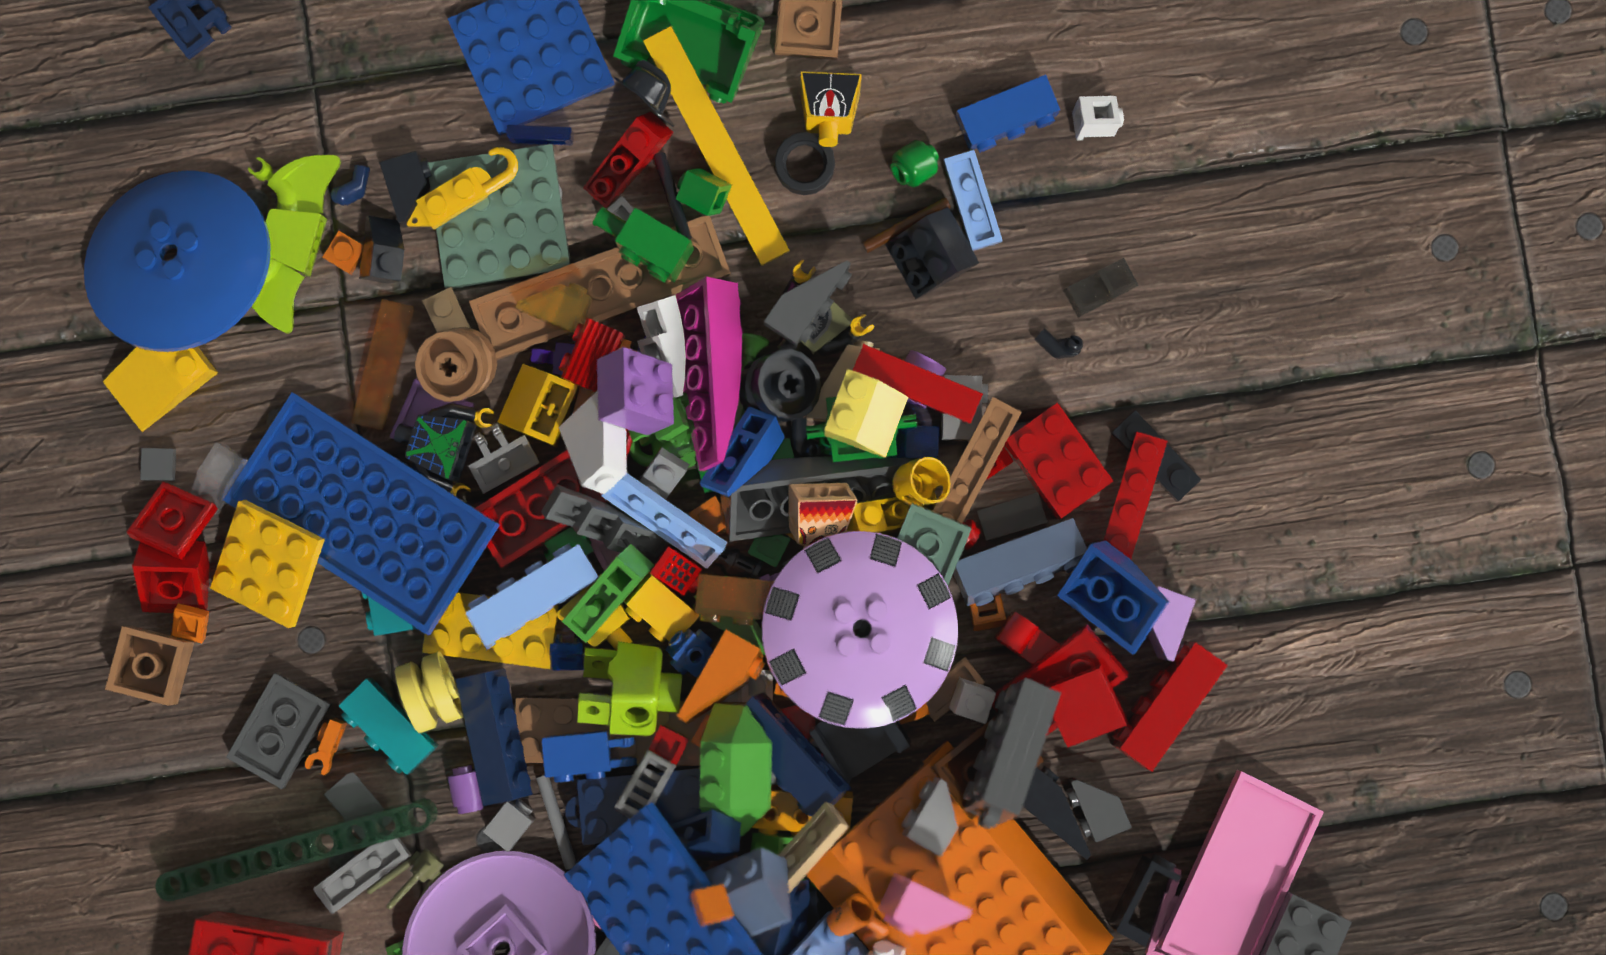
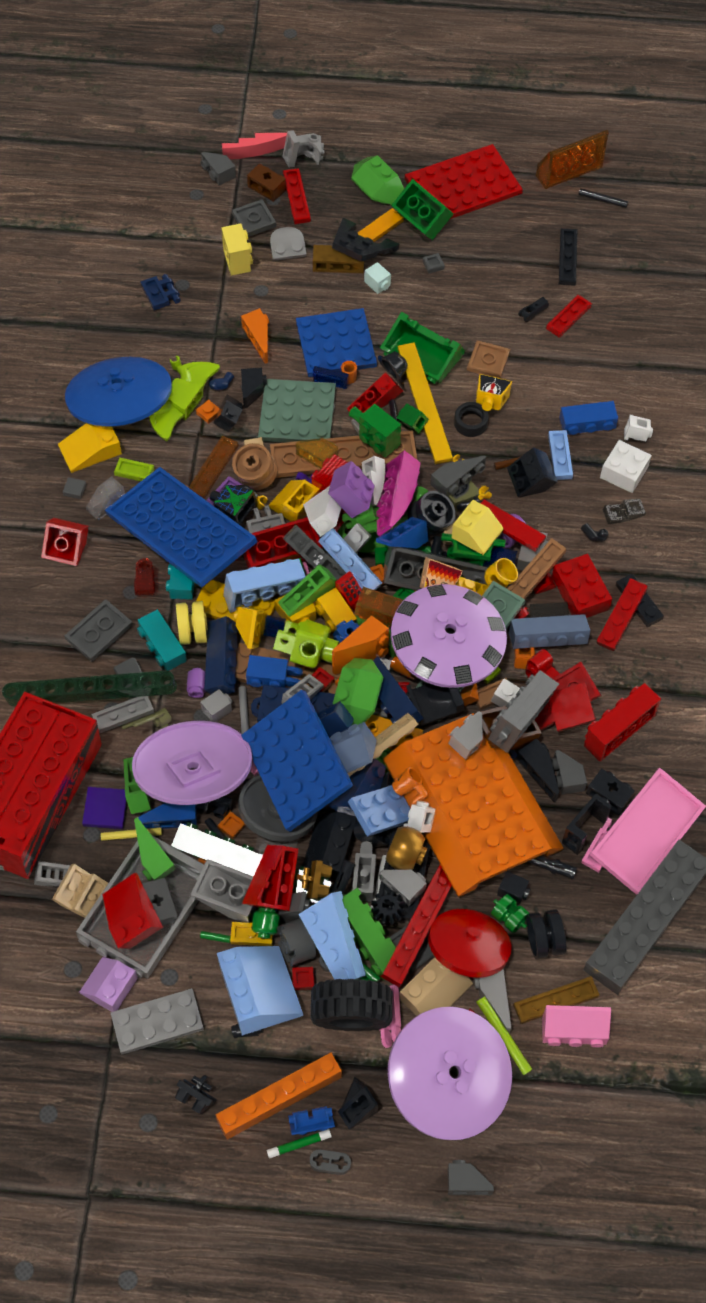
camera: 15 degrees right, 25 degrees down
(149, 665) = (37, 578): medium nougat brick -> none
(172, 520) = (74, 511): red tile -> none
(190, 623) = (66, 566): orange tile -> none
(248, 402) = (133, 469): none -> lime tile
(267, 563) = (120, 541): yellow plate -> none
(328, 623) = (144, 580): none -> clear red piece
(330, 738) = (126, 640): orange plate -> none
(387, 62) = (256, 327): none -> orange slope
(461, 192) = (280, 392): yellow plate -> none
(526, 675) = (249, 625): none -> yellow slope
(567, 104) = (350, 368): none -> orange beam
(712, 905) = (327, 742): orange tile -> none
(914, 163) = (532, 430): green head -> none
(918, 908) = (452, 768): bright pink slope -> none
(1089, 200) = (625, 466): none -> white brick
(1114, 595) = (599, 652): blue slope -> none
(1170, 626) = (628, 673): lavender slope -> none
(1184, 838) = (602, 786): none -> black brick

